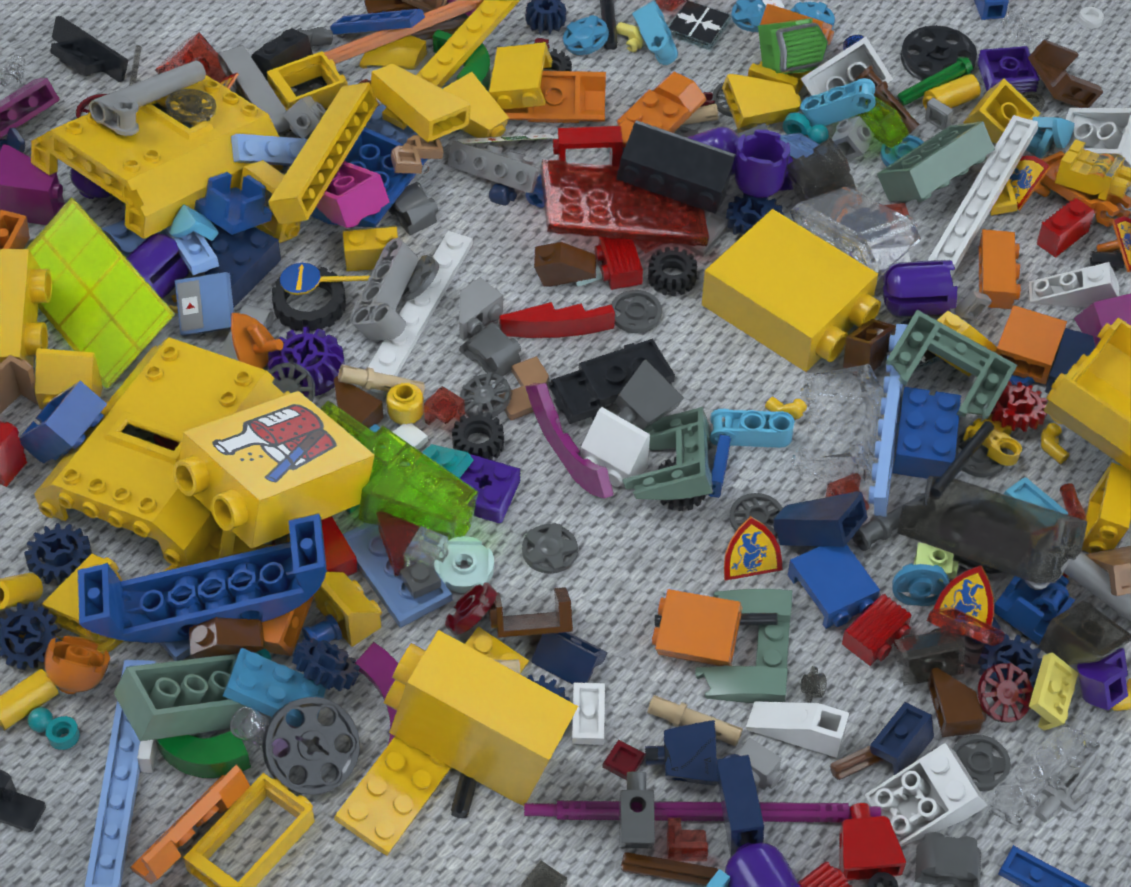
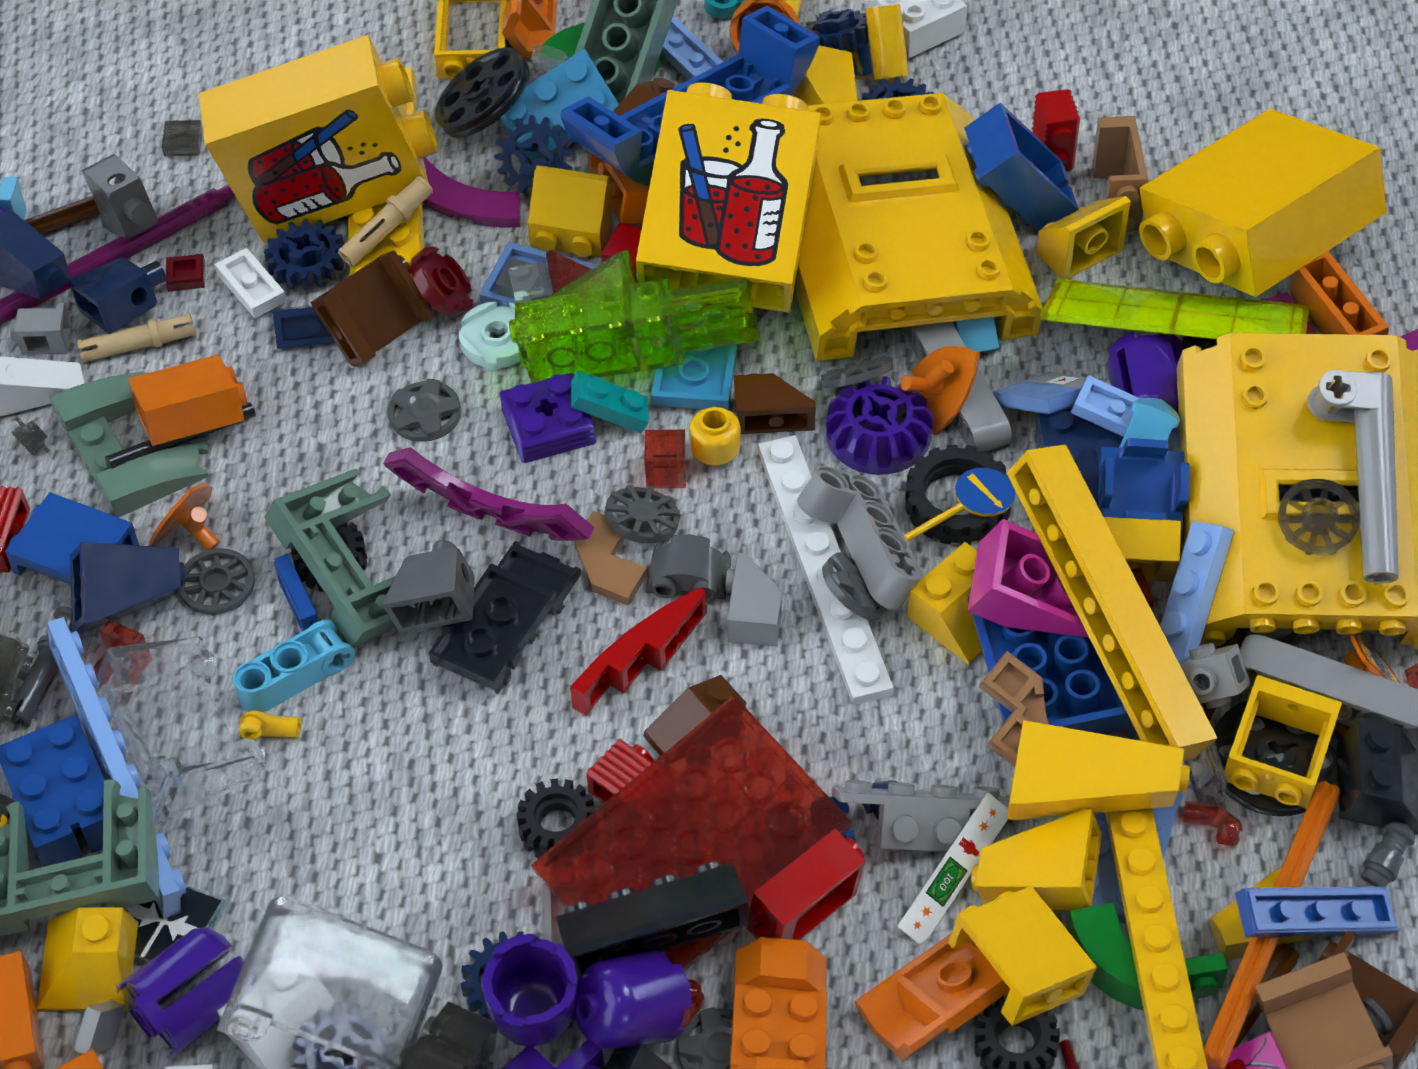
camera: 145 degrees right, 0 degrees up
(373, 380) = (763, 437): tan pin -> none
(411, 435) = (680, 415): white tile -> none
(414, 209) = (958, 688): dark grey cylinder -> none
(479, 424) = (603, 444): black tyre -> none
(616, 446) = (416, 526): white slope -> none
(637, 311) = (561, 742): dark grey wheel -> none
(685, 844) = (71, 232): clear red panel -> none
(791, 291) = (369, 846): yellow brick -> none
(868, 344) = (210, 867): reddish brown slope -> none

